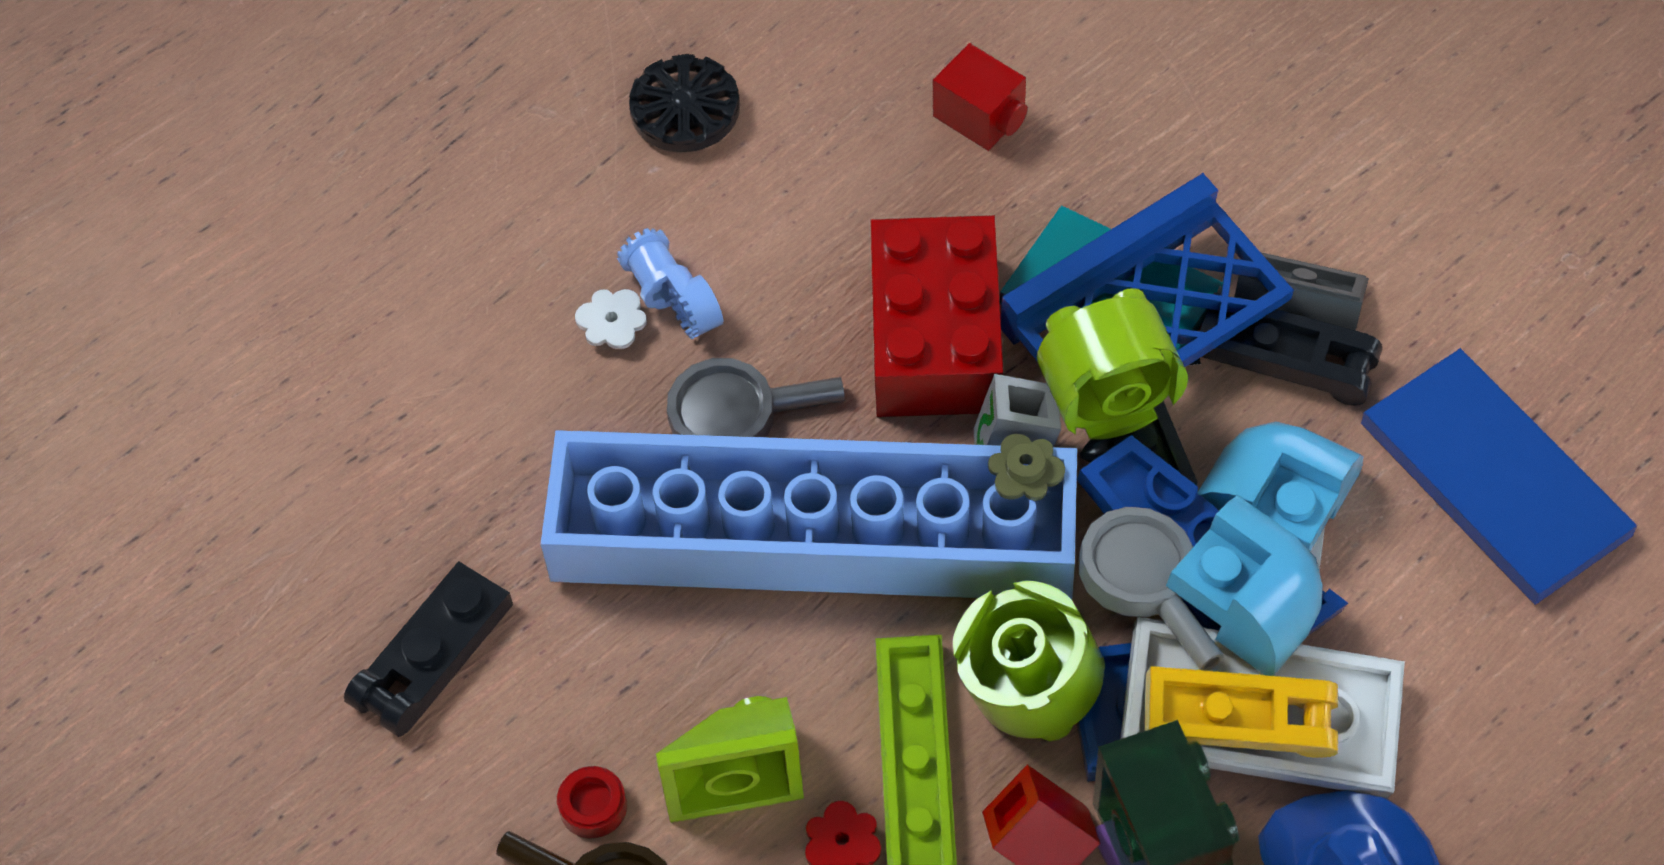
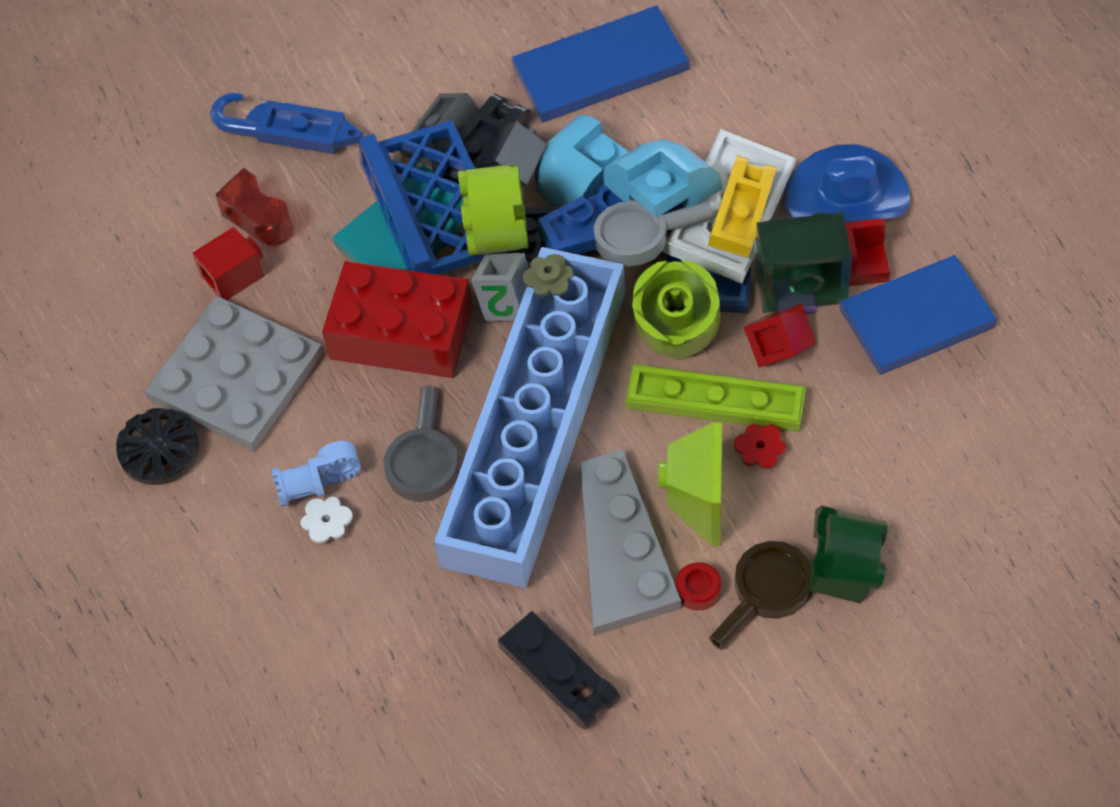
camera: 75 degrees left, 0 degrees up
(633, 689) = (623, 553): none -> light grey wing
(817, 156) = (235, 373): none -> light grey plate
(1077, 100) = (253, 211): none -> clear red leg
(1240, 103) = (288, 125): none -> blue plate
(1259, 385) = (512, 146): none -> brick

